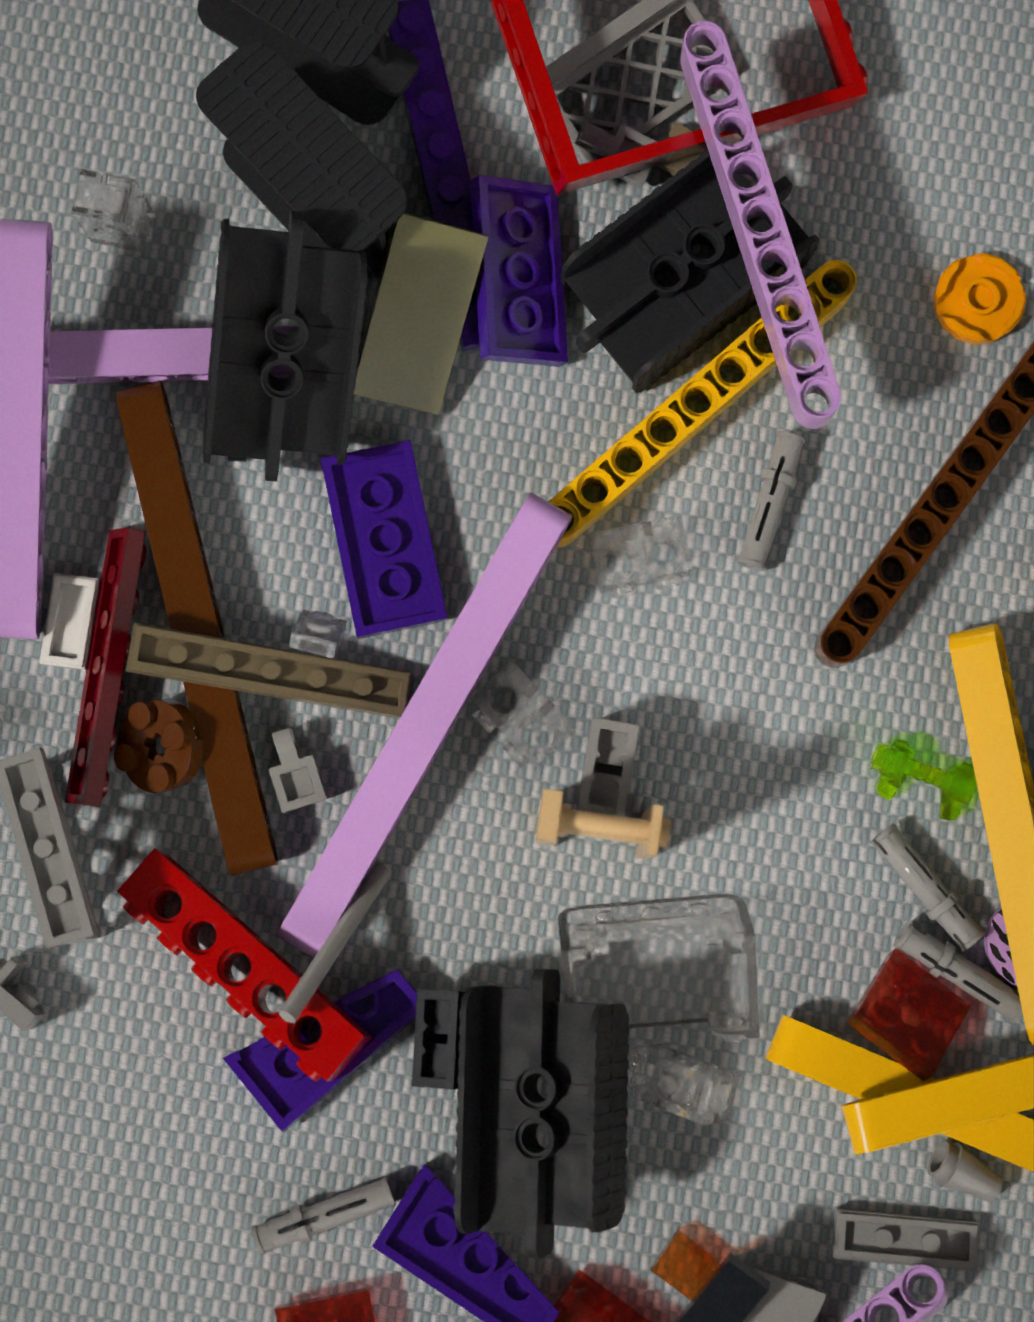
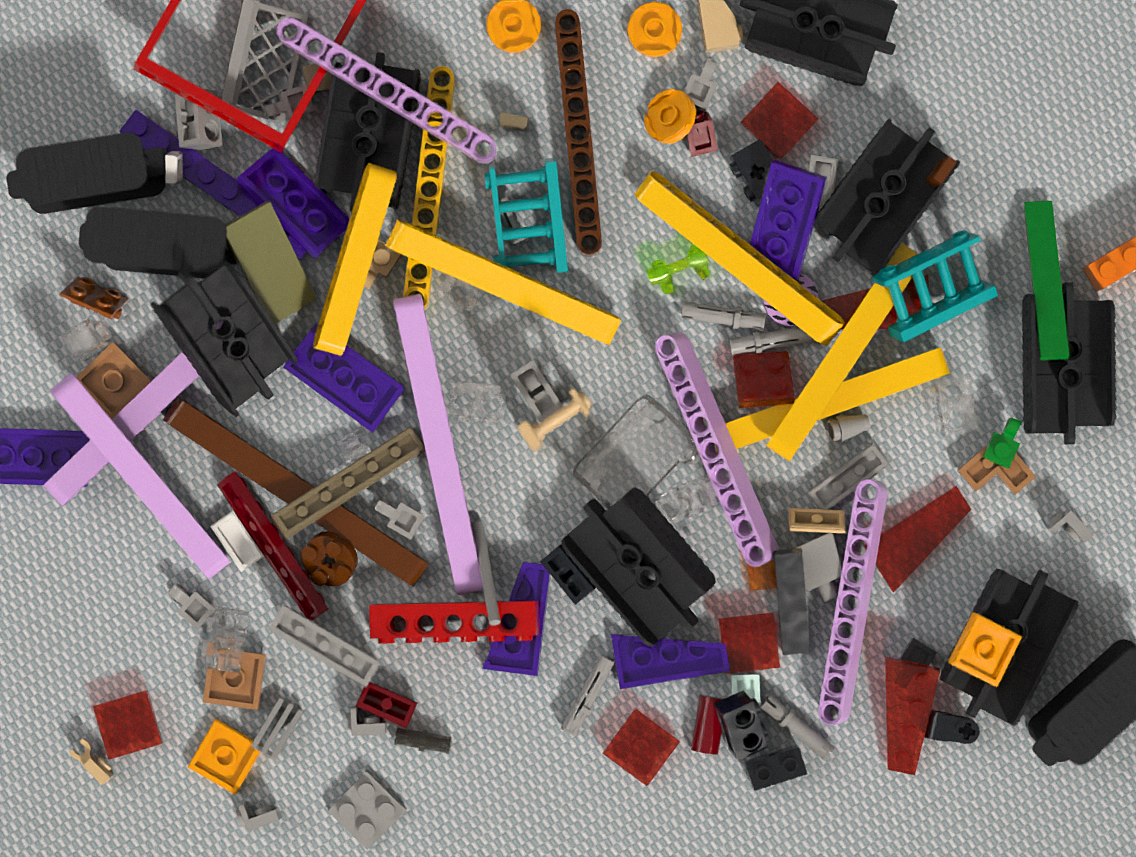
camera: 45 degrees left, 5 degrees up
(62, 994) = (386, 704): none -> dark red brick
(66, 1081) = (423, 740): none -> clear smoke pin
(101, 288) = (113, 379): none -> medium nougat plate
(171, 172) = (88, 294): none -> dark orange hinge
(409, 96) = (174, 166): none -> white tile
(483, 77) = (197, 126): none -> light grey brick
(529, 400) = (354, 259): none -> yellow beam
(557, 437) = (382, 263): none -> tan plate
(688, 593) = (503, 282): none -> yellow beam
(753, 1065) = (715, 462): none -> lavender beam
(808, 585) = (550, 201): none -> teal fence
(818, 1259) = (816, 520): none -> tan slope
(876, 413) = (513, 121): none -> dark tan tile

